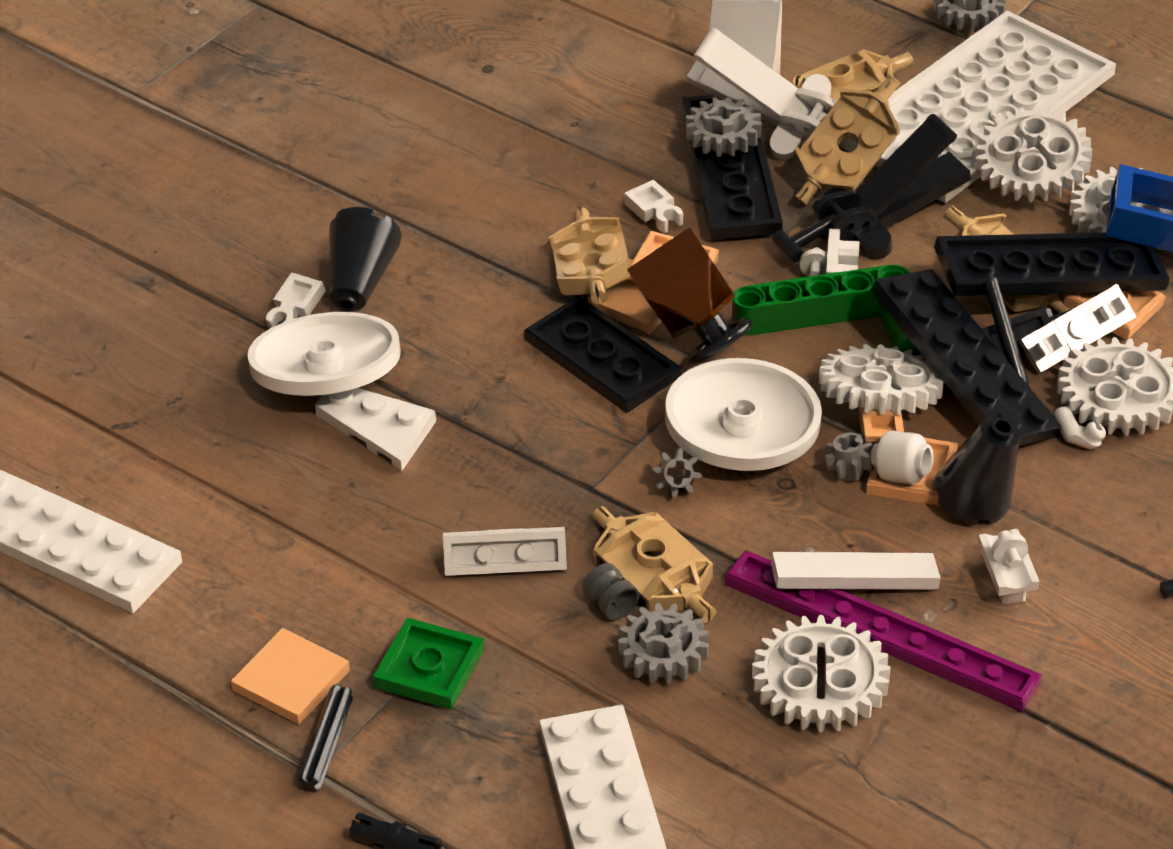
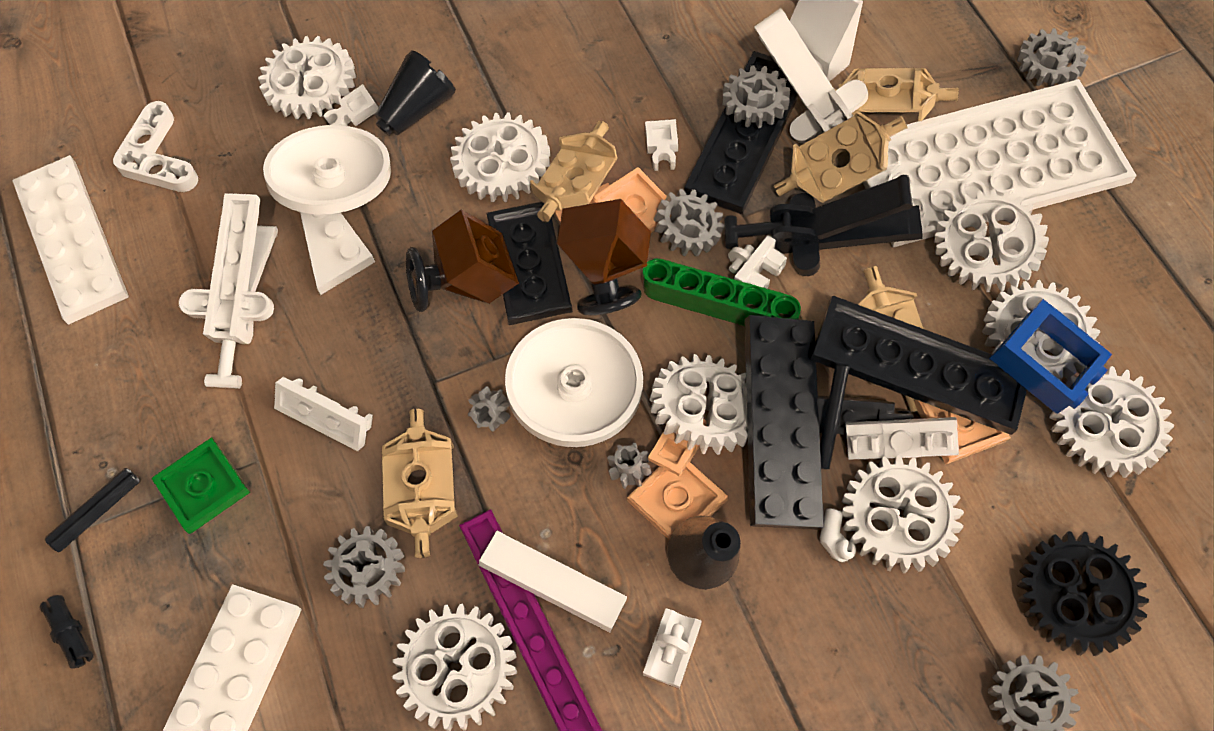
camera: 35 degrees right, 20 degrees up
(79, 434) = (159, 116): none -> white beam
(191, 301) = (307, 77): none -> white gear
(290, 676) = (113, 440): light nougat tile -> none
(320, 487) = (232, 299): none -> white piece
(498, 278) = (497, 149): none -> white gear
(546, 369) = (467, 260): none -> reddish brown piece
(613, 594) = (364, 494): dark grey wheel -> none
(742, 253) = (689, 222): none -> light grey gear
(902, 457) = (660, 495): white head -> none

